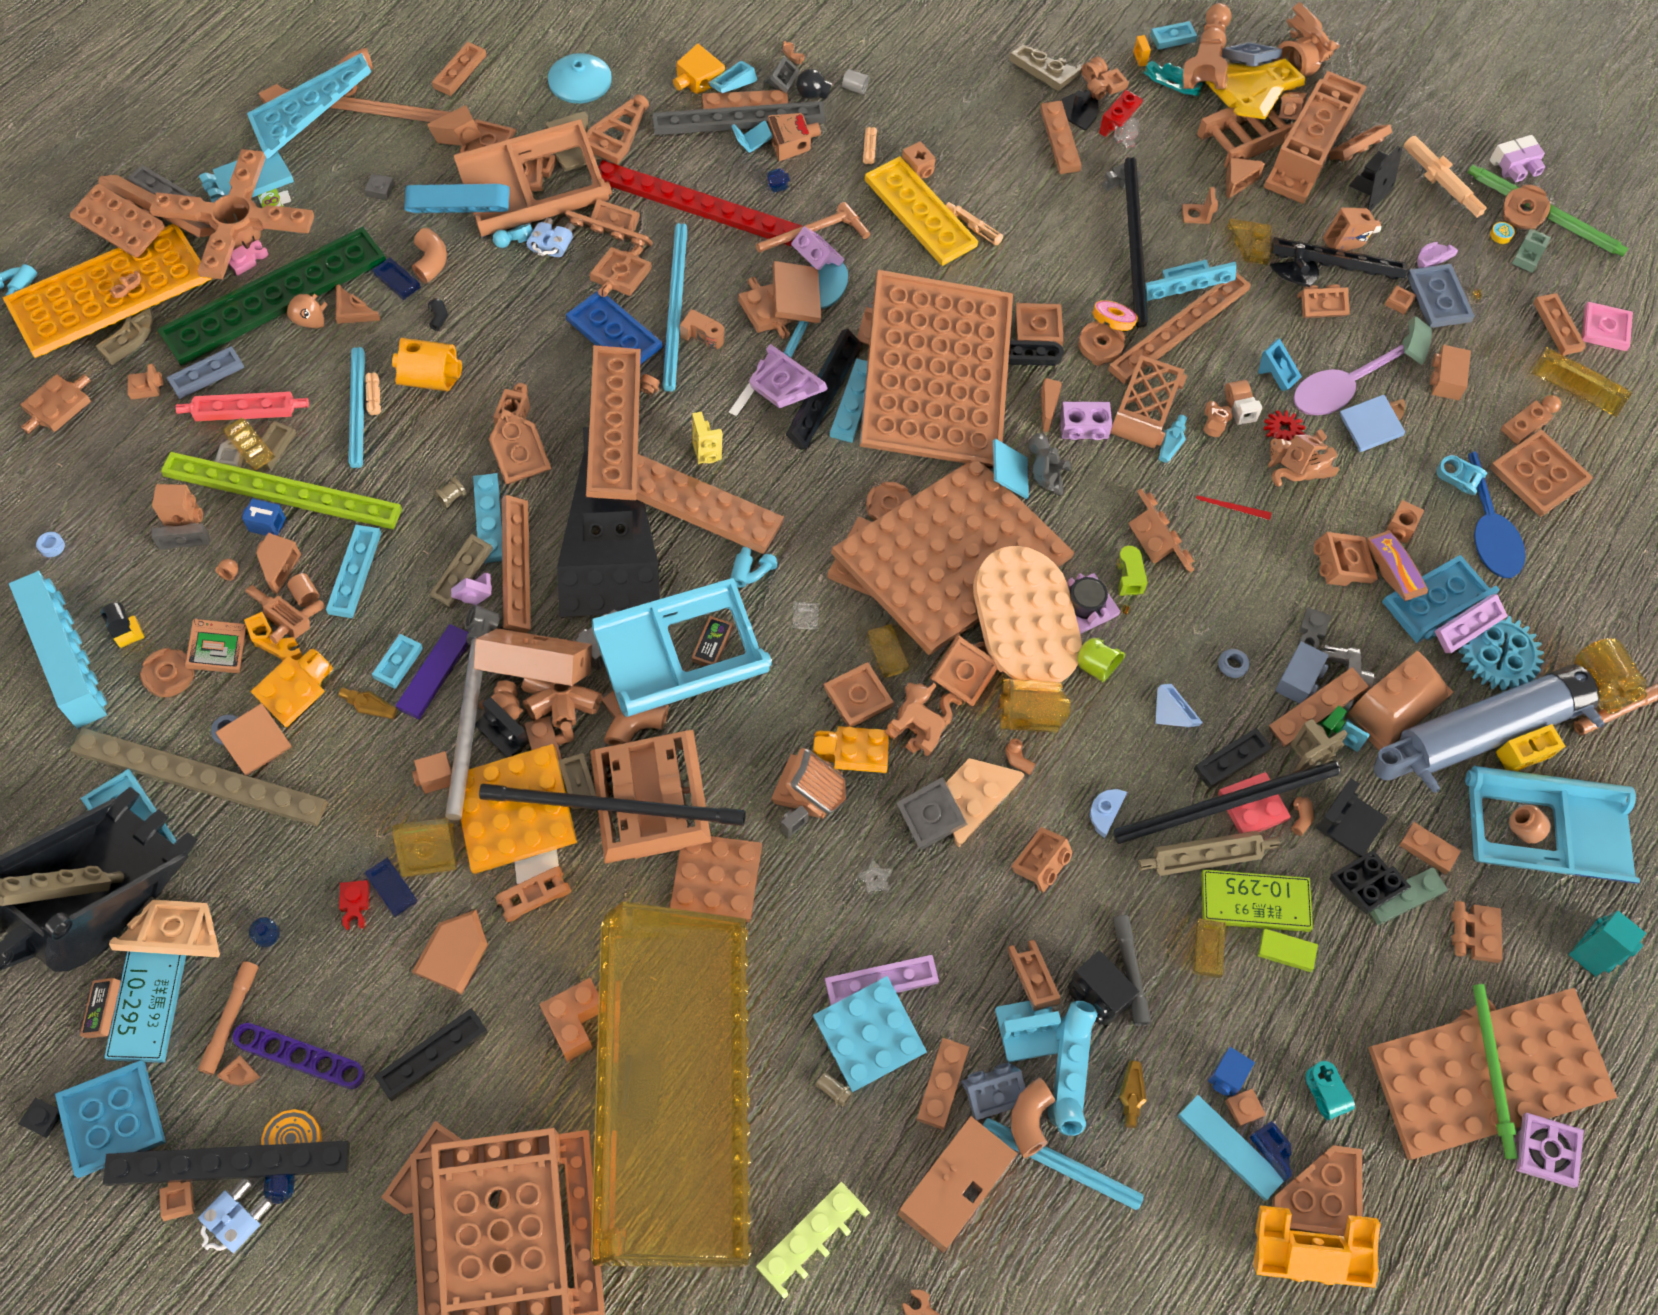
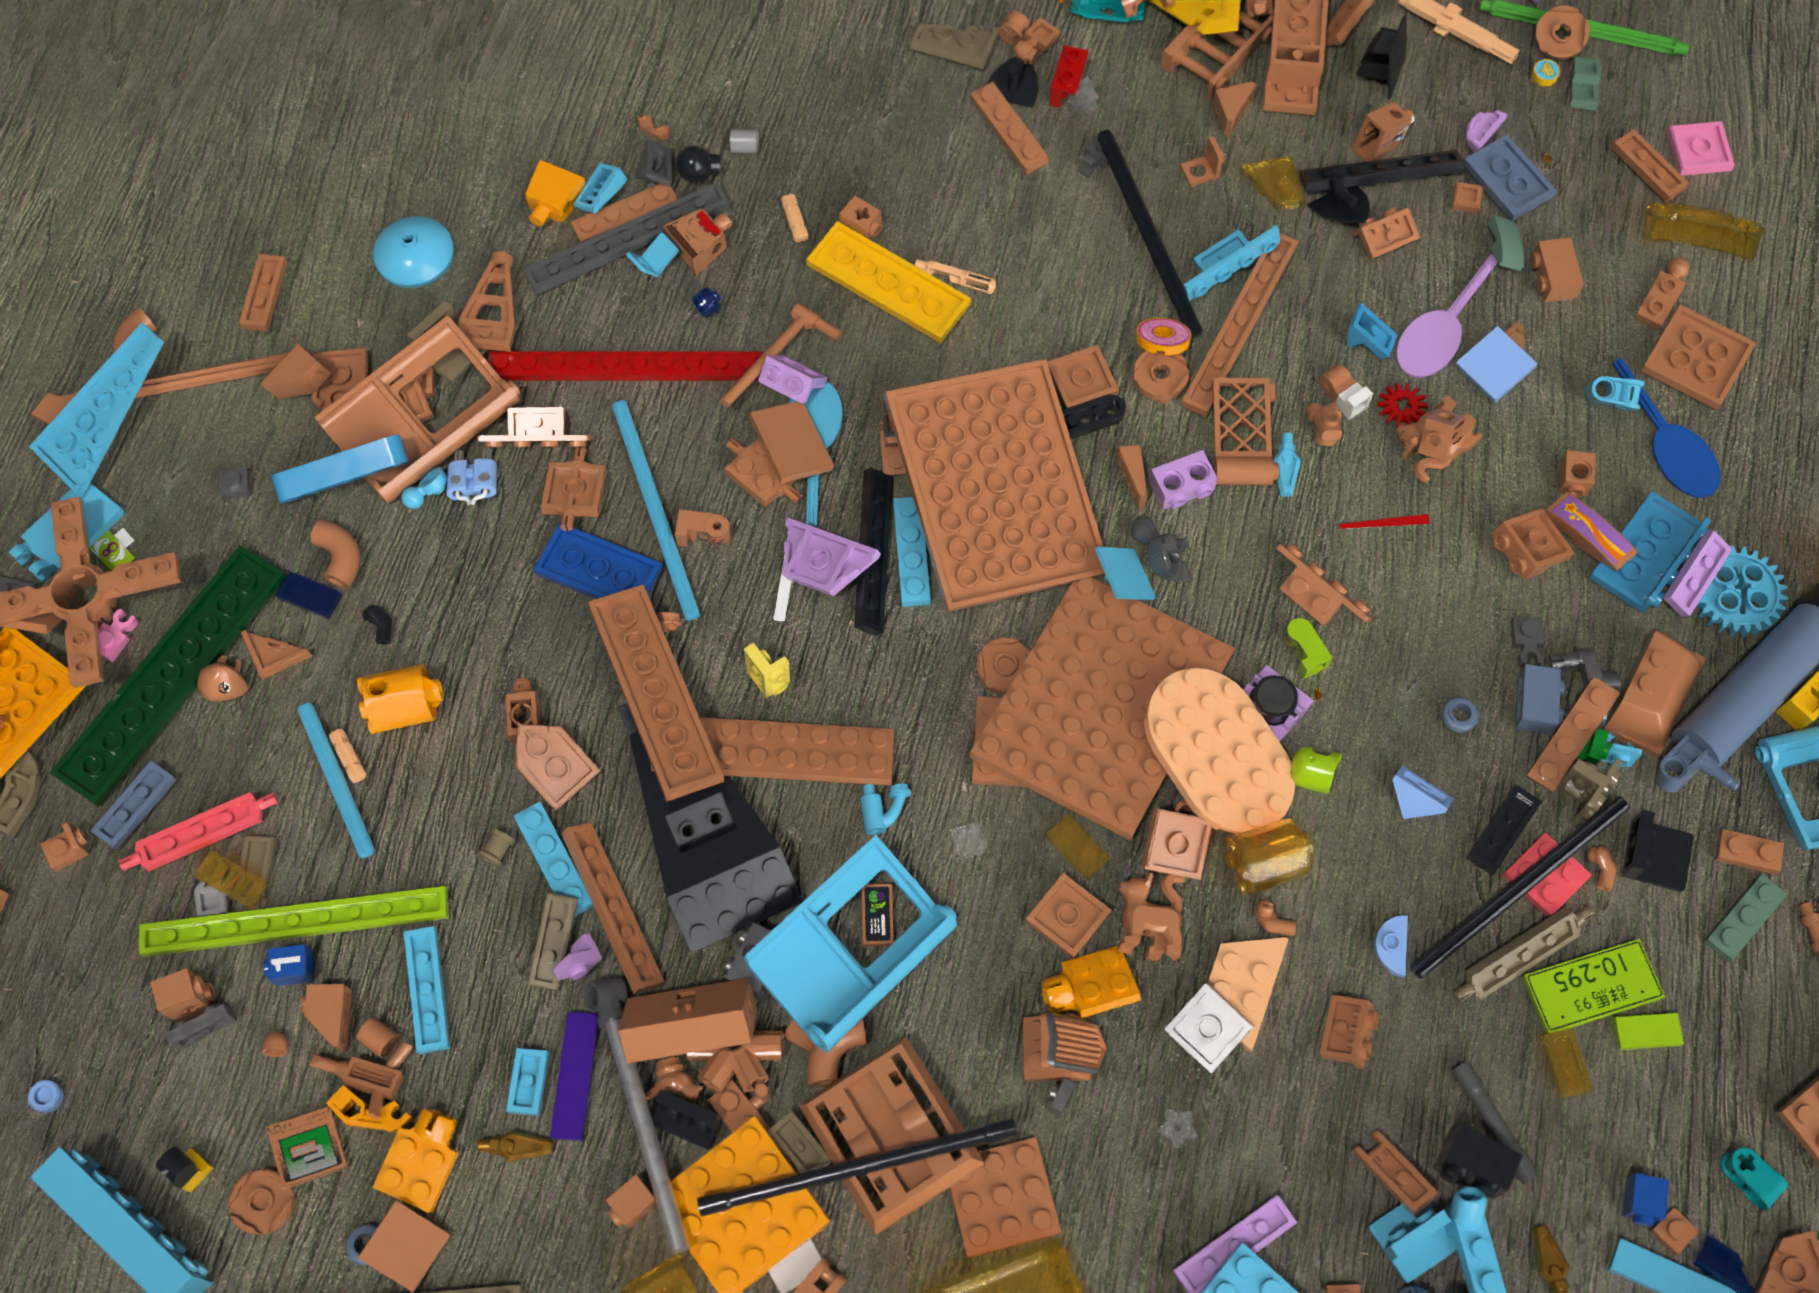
camera: 15 degrees left, 5 degrees up
(1369, 882) = (1704, 919): black slope -> none

